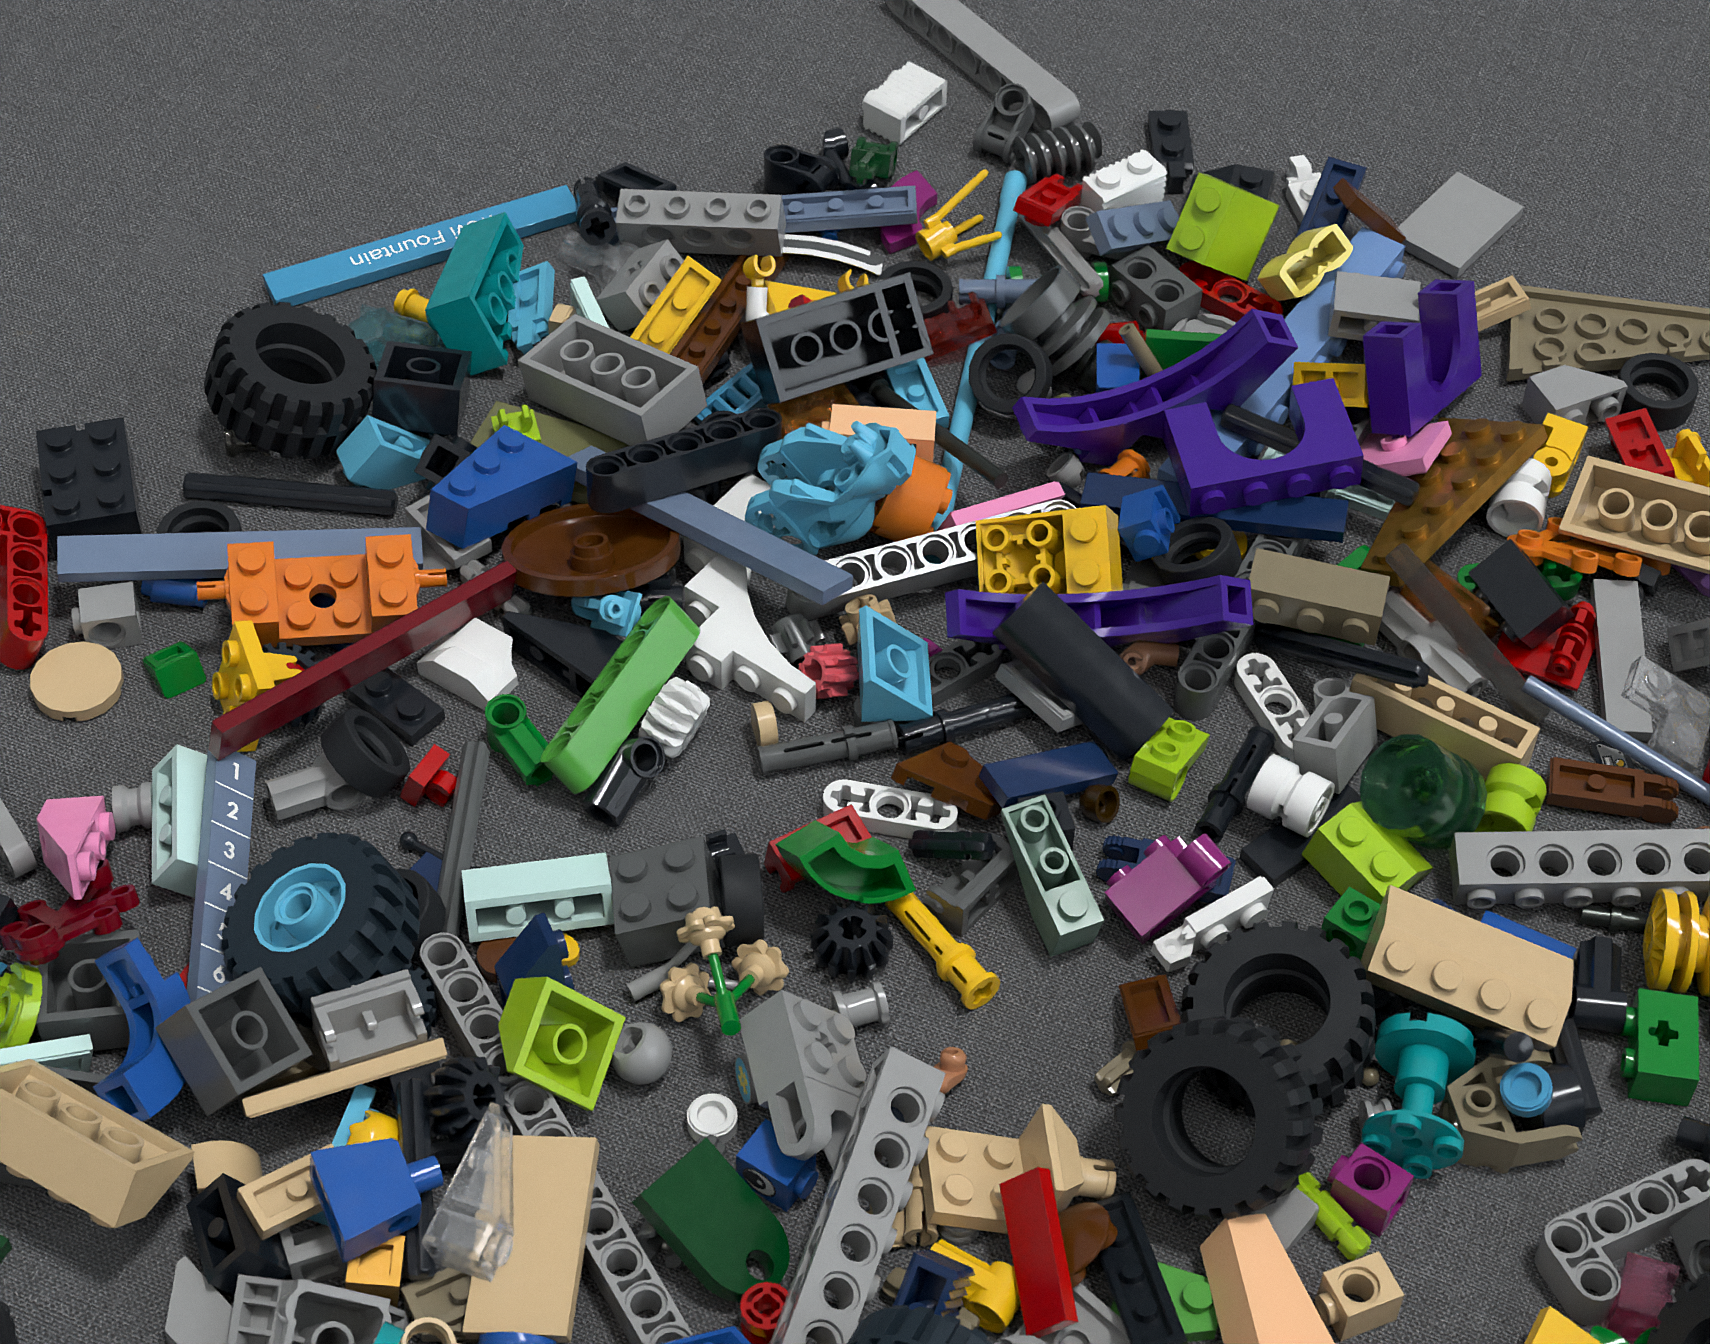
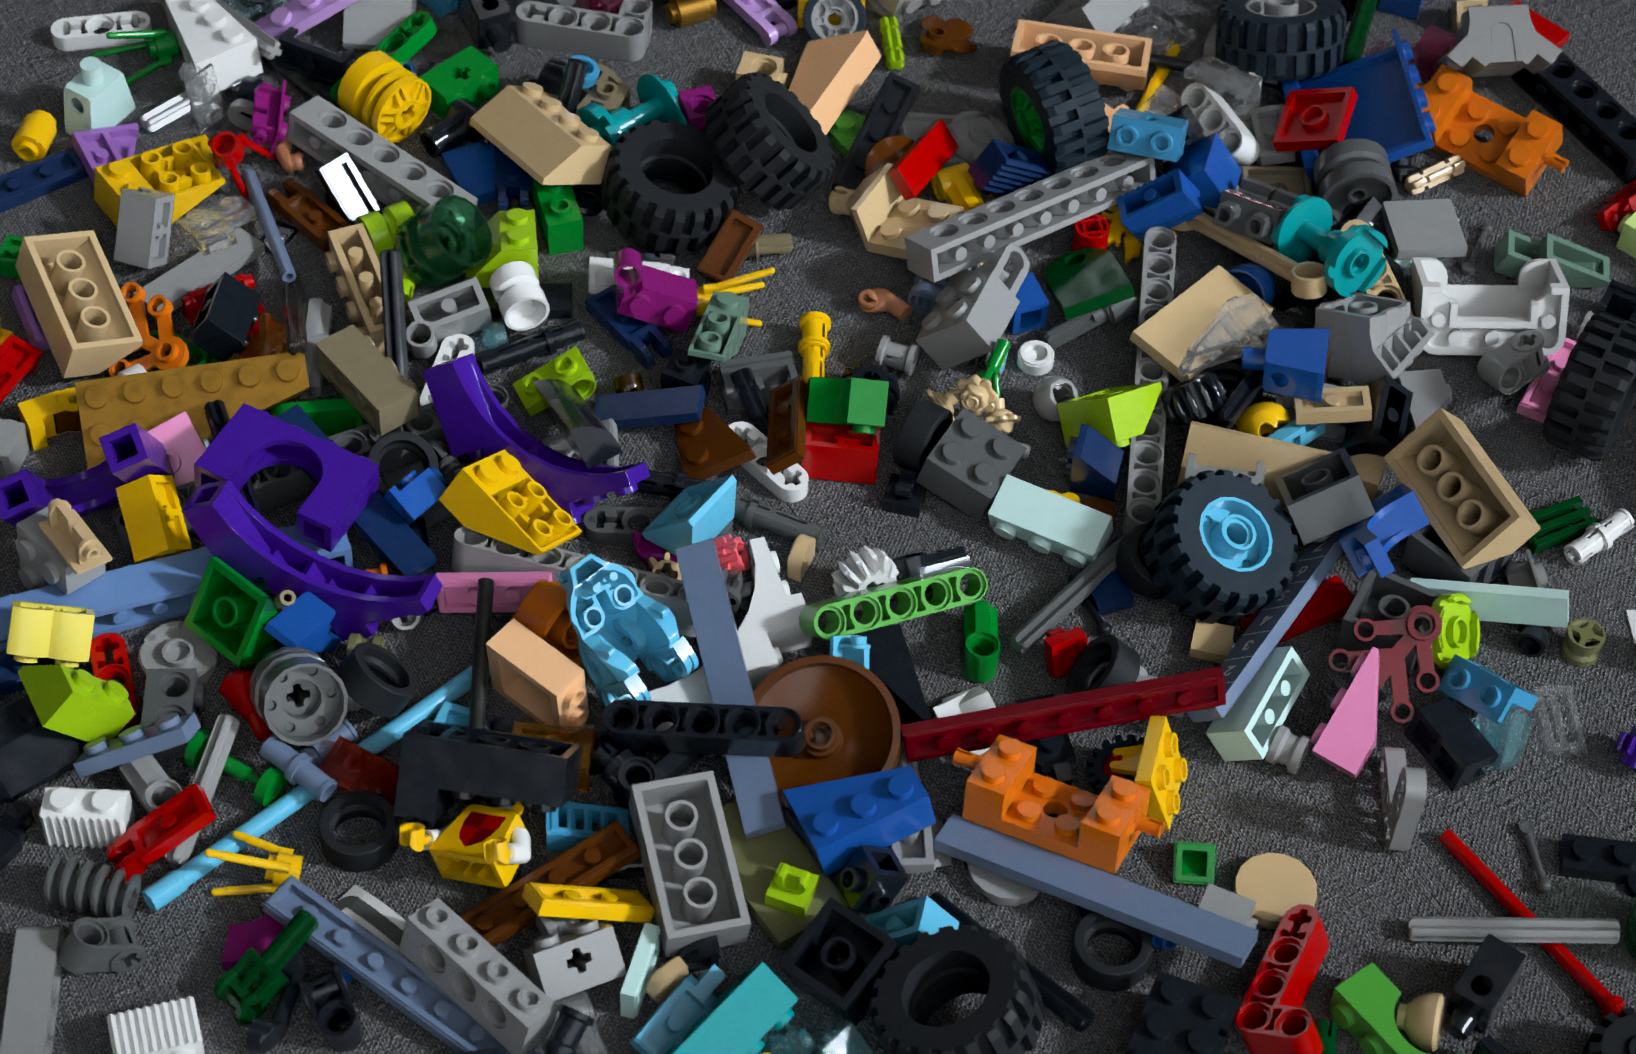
camera: 145 degrees left, 0 degrees up
(891, 825) = (786, 425): none -> reddish brown tile
(1111, 952) = (705, 293): none -> yellow plant
(1363, 287) = (73, 538): none -> tan hinge
(1601, 809) = (346, 189): none -> tile

